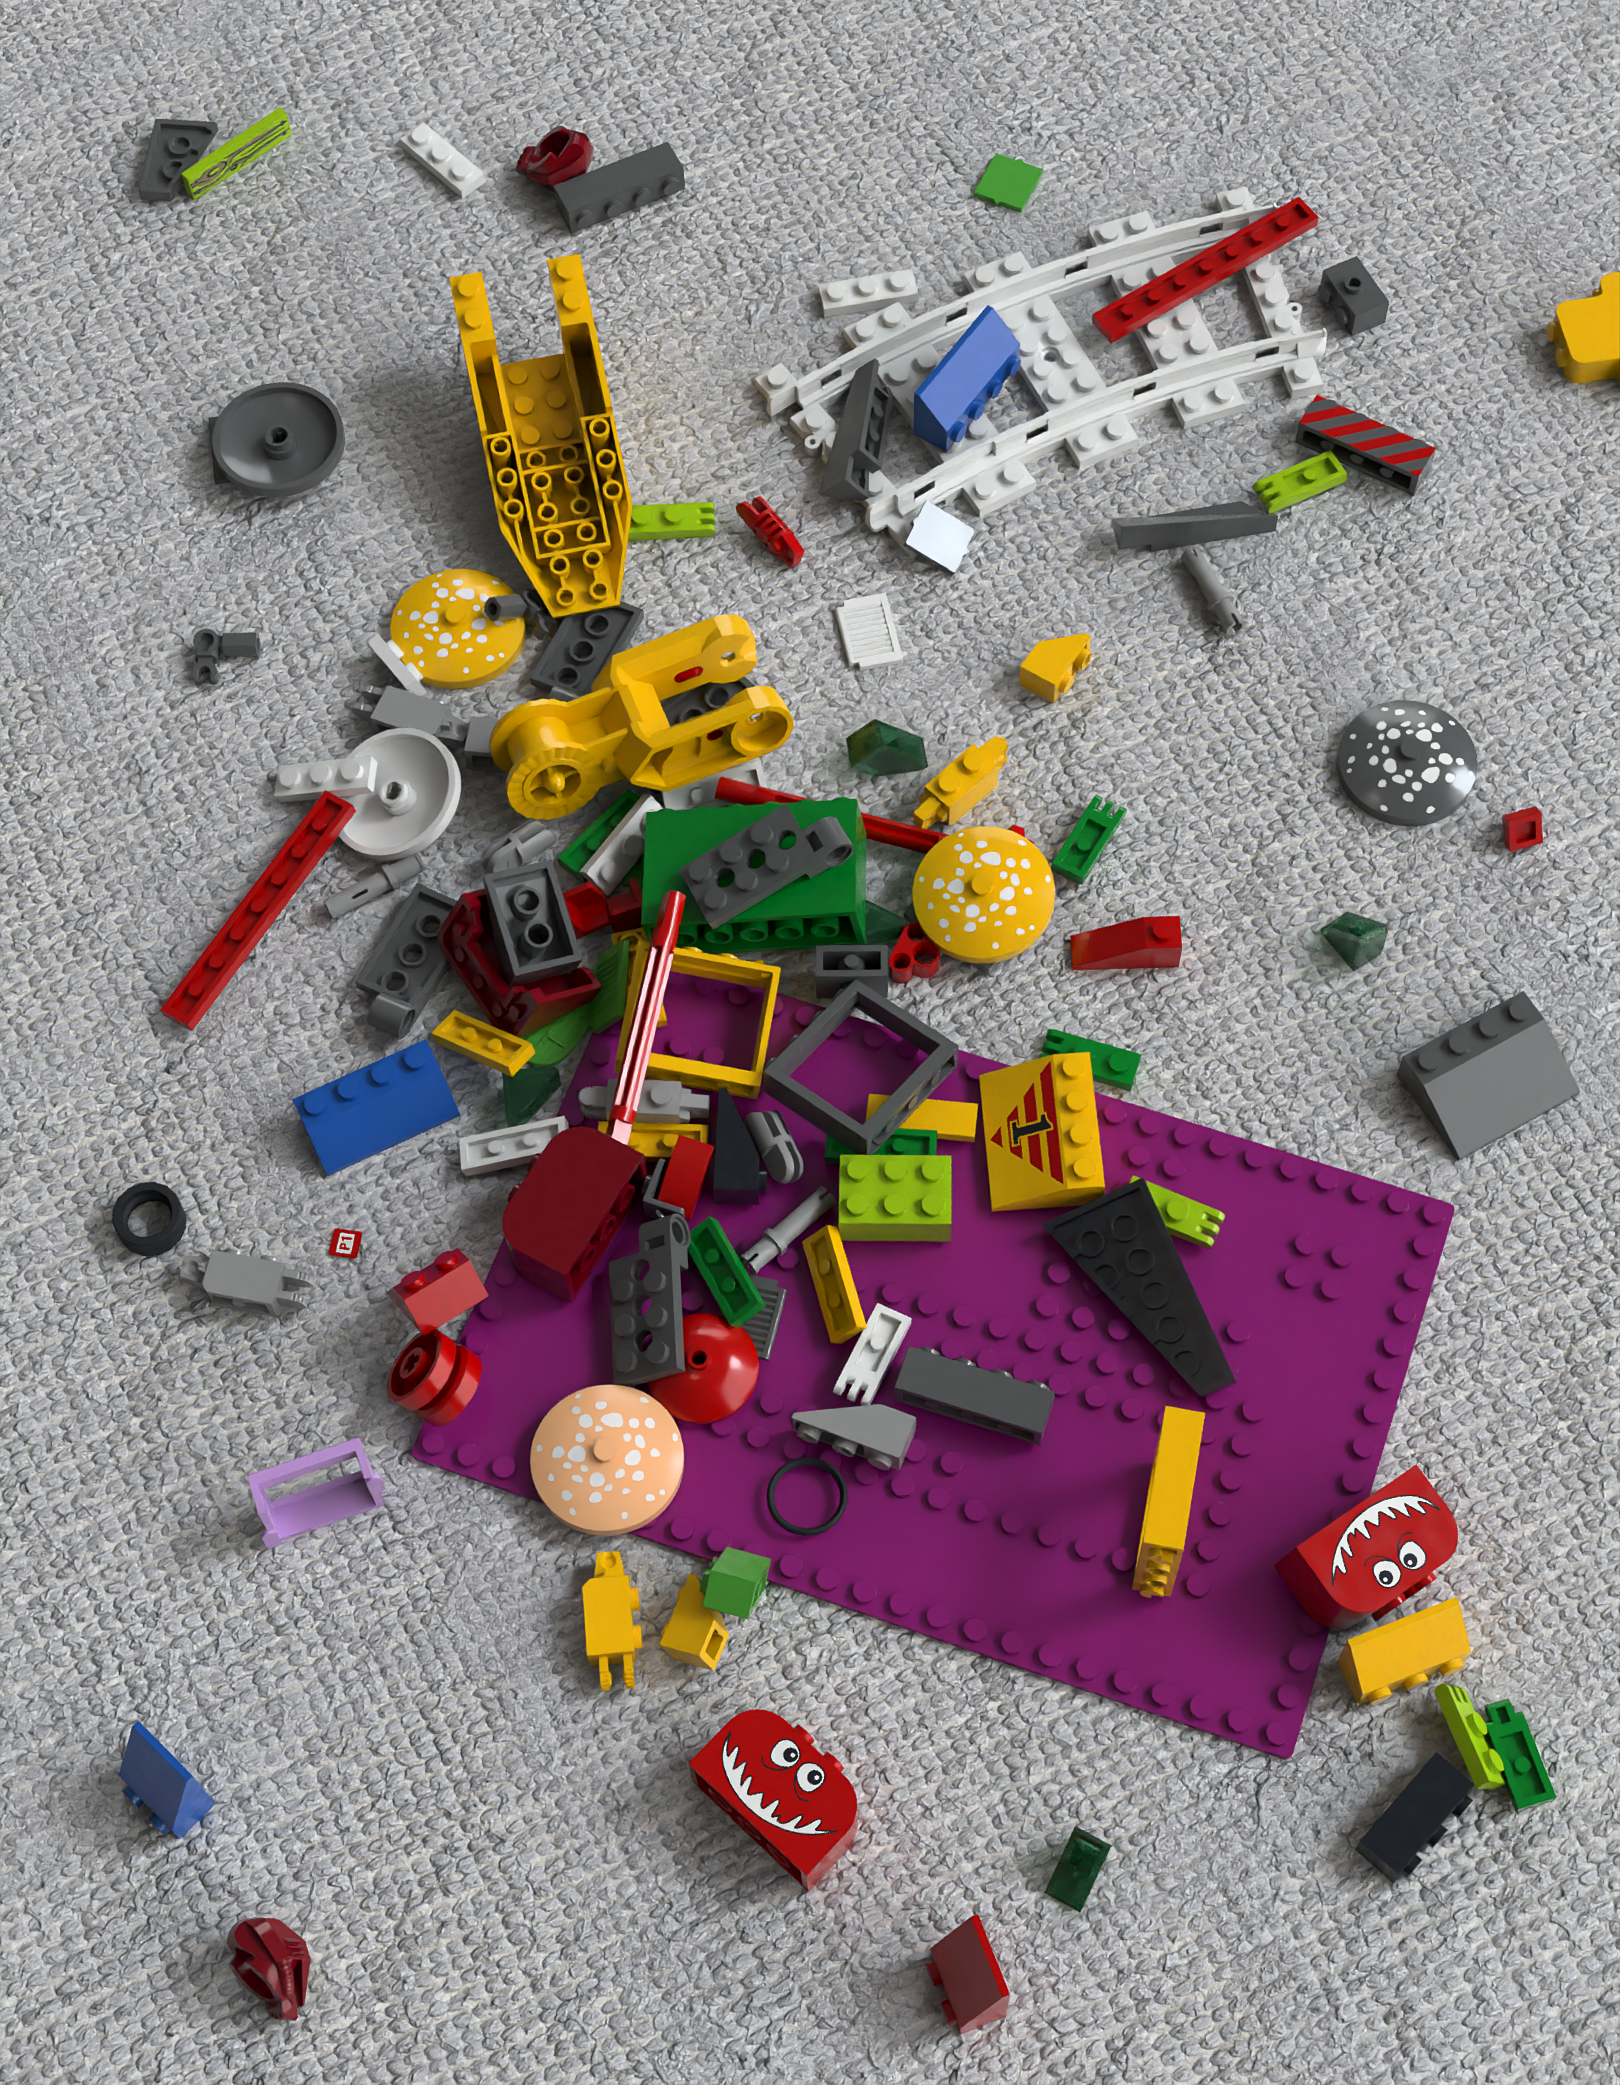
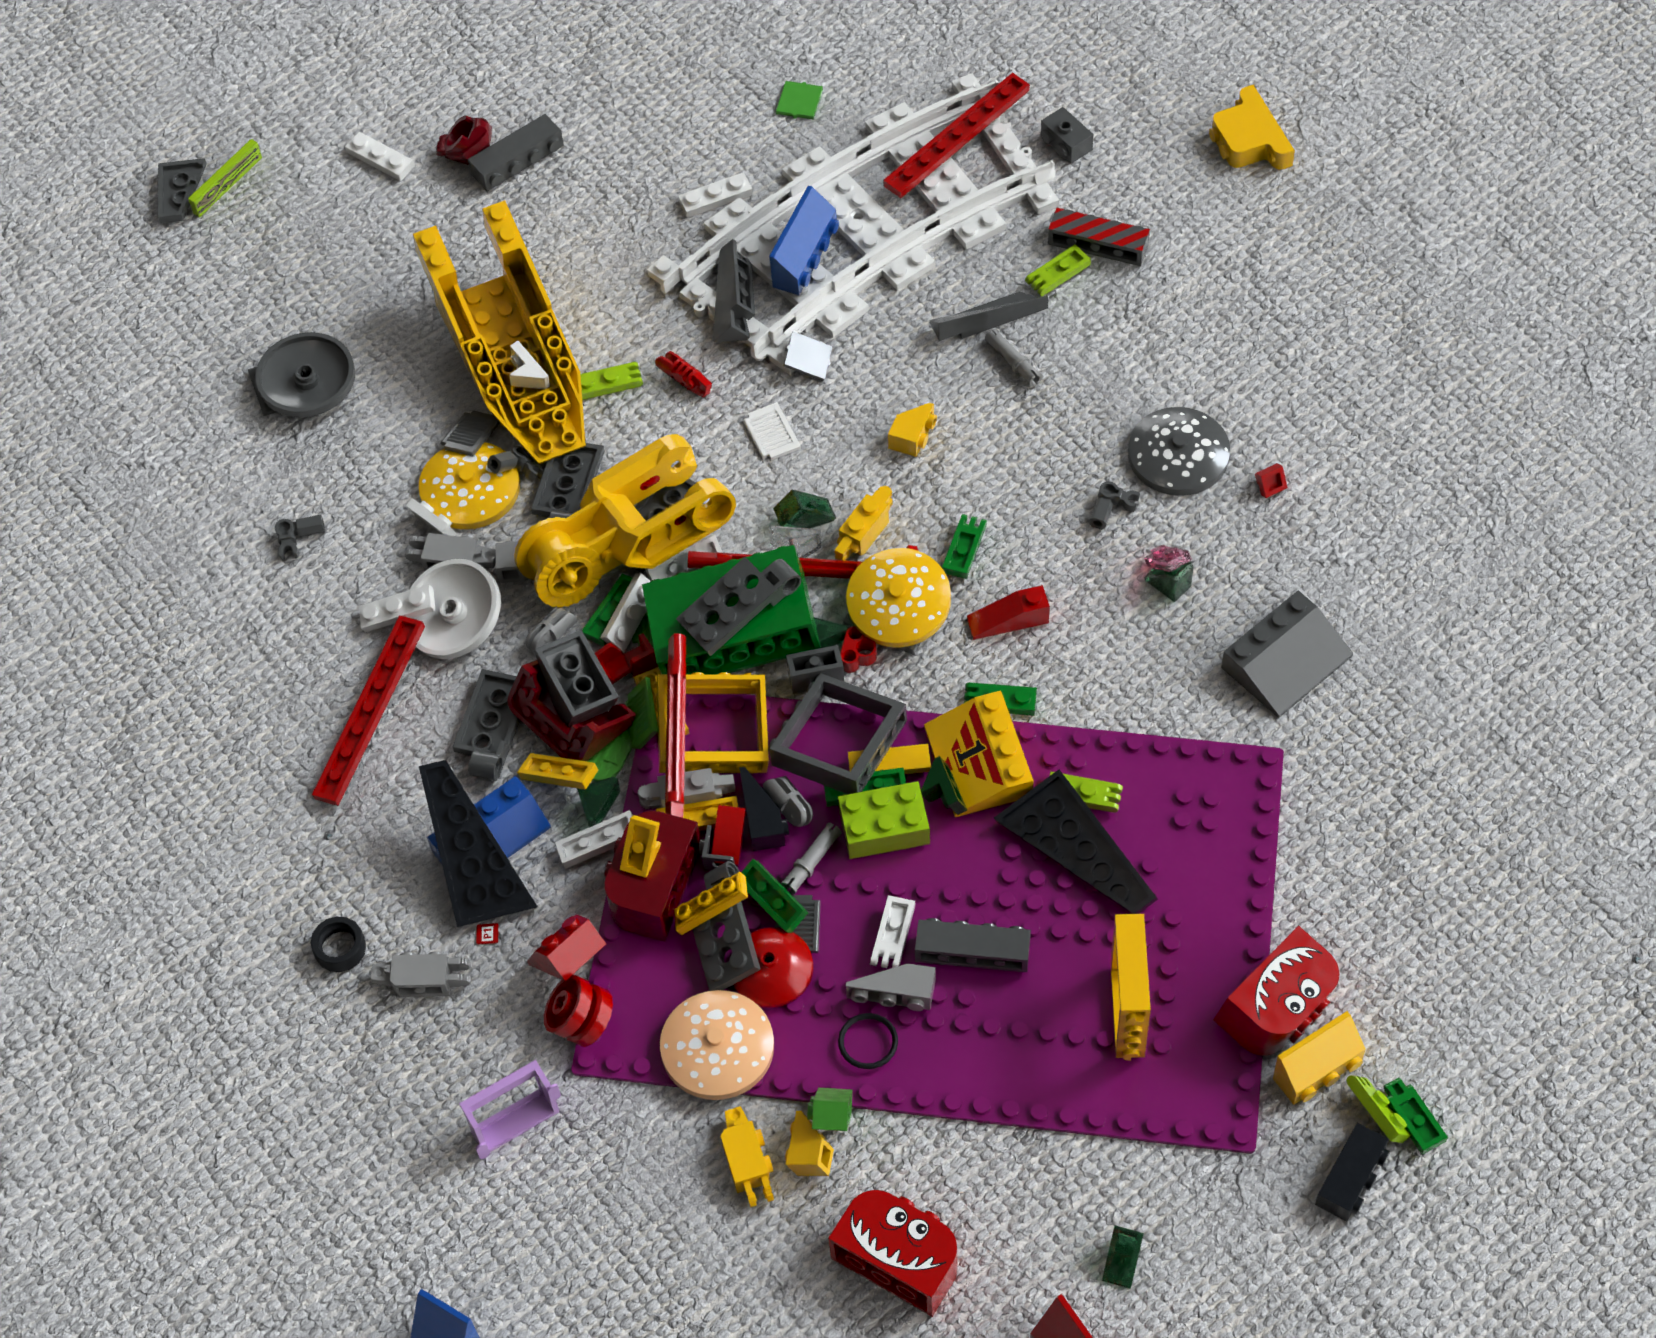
camera: 10 degrees left, 5 degrees down
(344, 1148) = (474, 865): none -> black wing
(376, 884) = (458, 670): light grey pin -> none
(473, 558) = (470, 433): none -> dark grey window
(559, 1175) = (640, 846): none -> yellow slope
(564, 492) = (528, 371): none -> white slope
(639, 1267) = (710, 903): none -> yellow tile
(834, 1284) = (853, 889): yellow plate -> none
(871, 789) = (804, 539): none -> clear slope
(984, 1165) = (942, 785): none -> dark green slope
(1297, 807) = (1110, 495): none -> dark grey bar
(1356, 910) = (1167, 558): none -> clear pink plate

